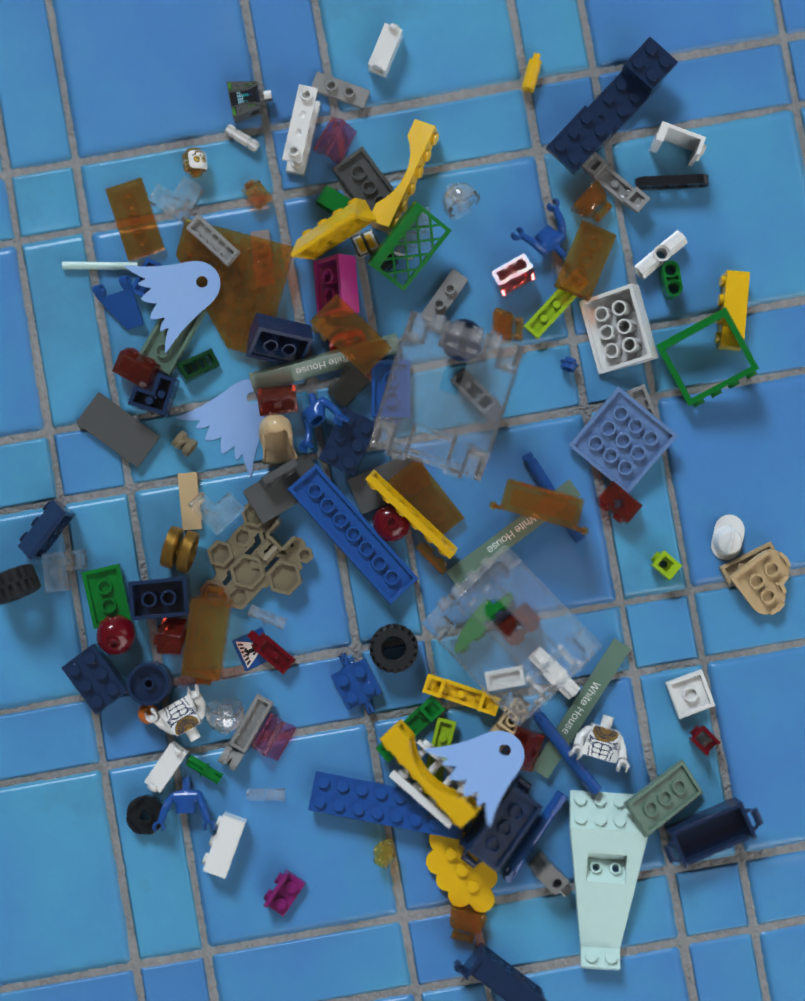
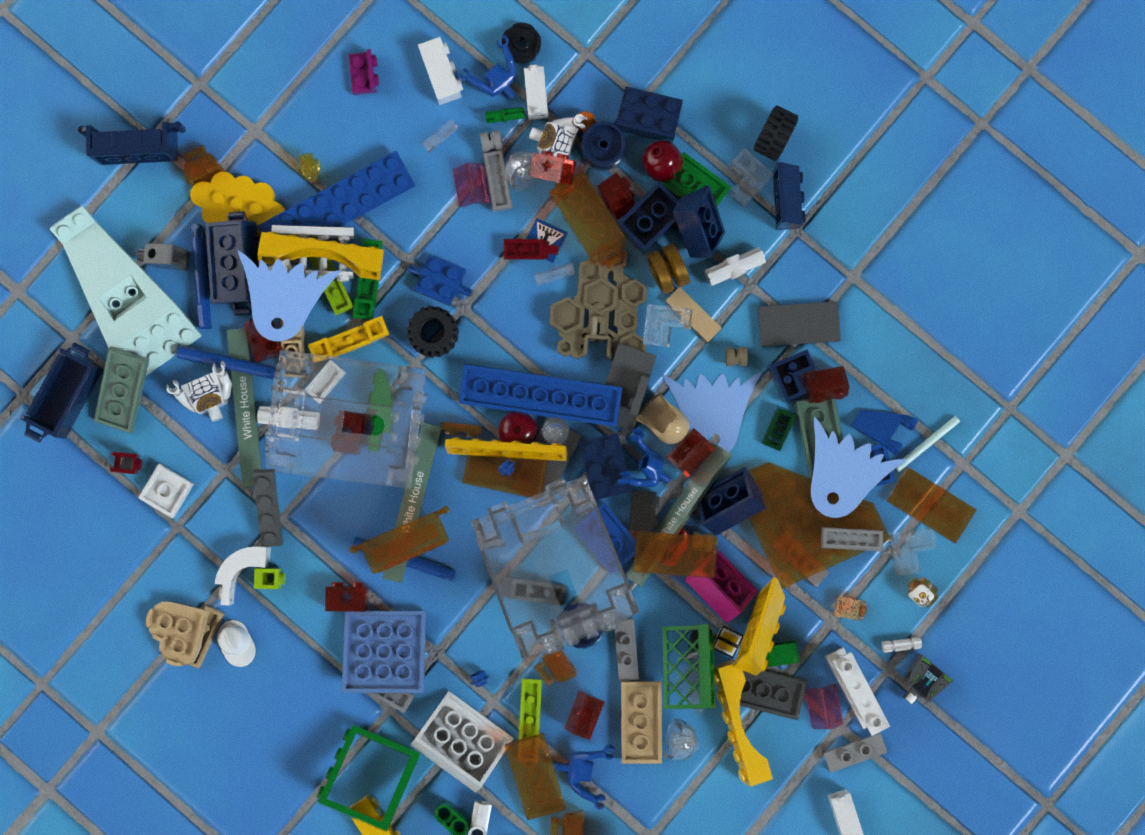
camera: 140 degrees right, 0 degrees up
(127, 563) = (699, 223): none -> dark blue slope
(129, 511) = (735, 266): none -> white piece
(202, 695) = (552, 168): none -> clear red brick
(363, 498) = (555, 430): none -> clear piece
(422, 500) = (506, 468): none -> blue plate
(476, 237) = (641, 722): none -> tan plate
(623, 617) = (267, 507): none -> dark grey plate
(668, 593) = (230, 569): none -> white arch

